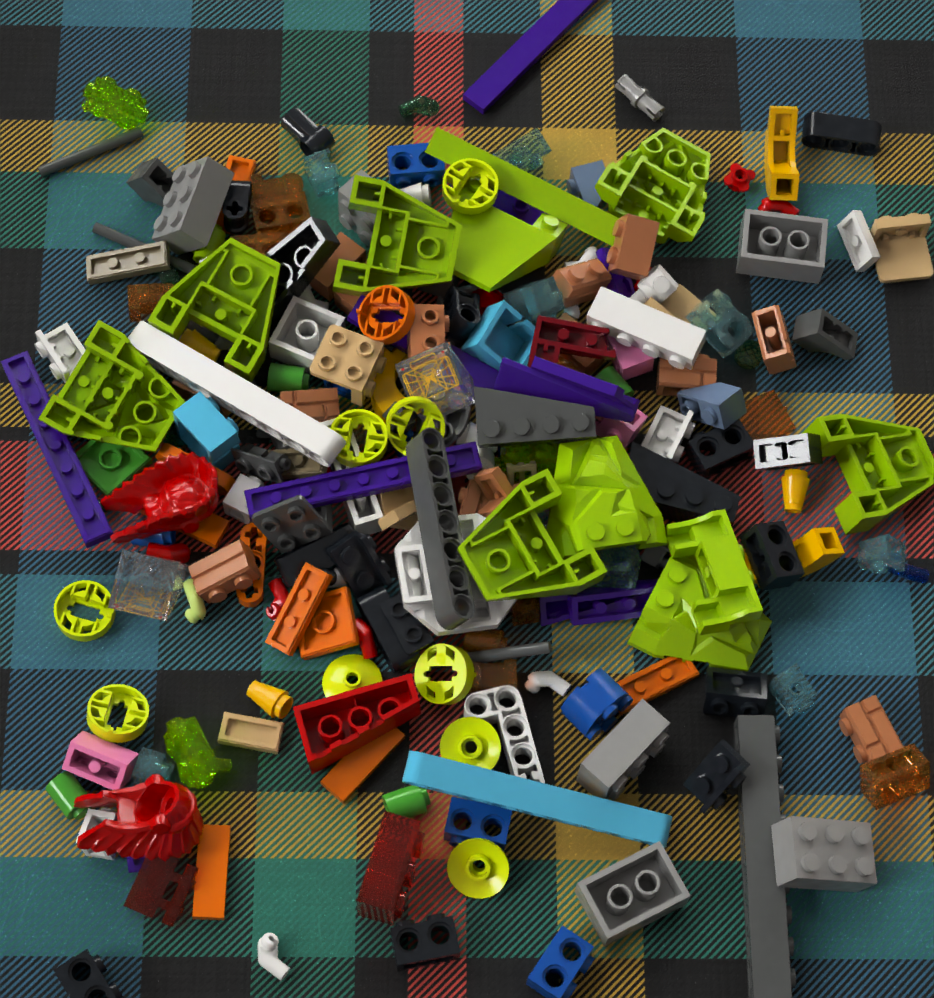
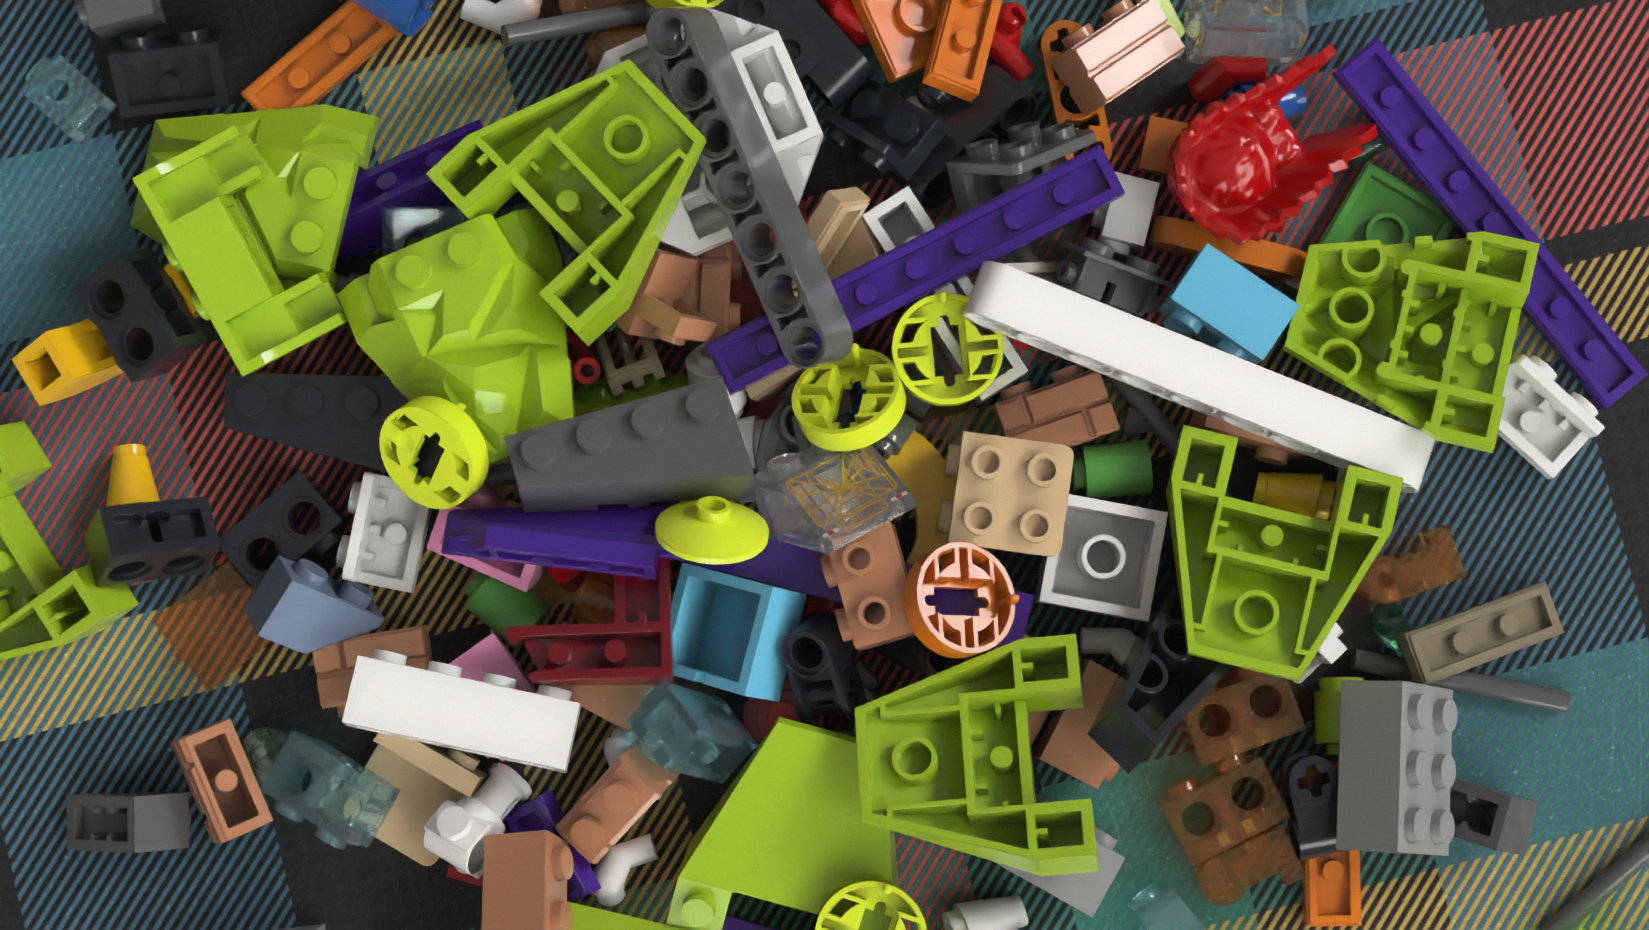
camera: 165 degrees right, 20 degrees up
(505, 359) = (711, 531): none -> neon yellow dish
(639, 460) = (462, 464): none -> neon yellow piece

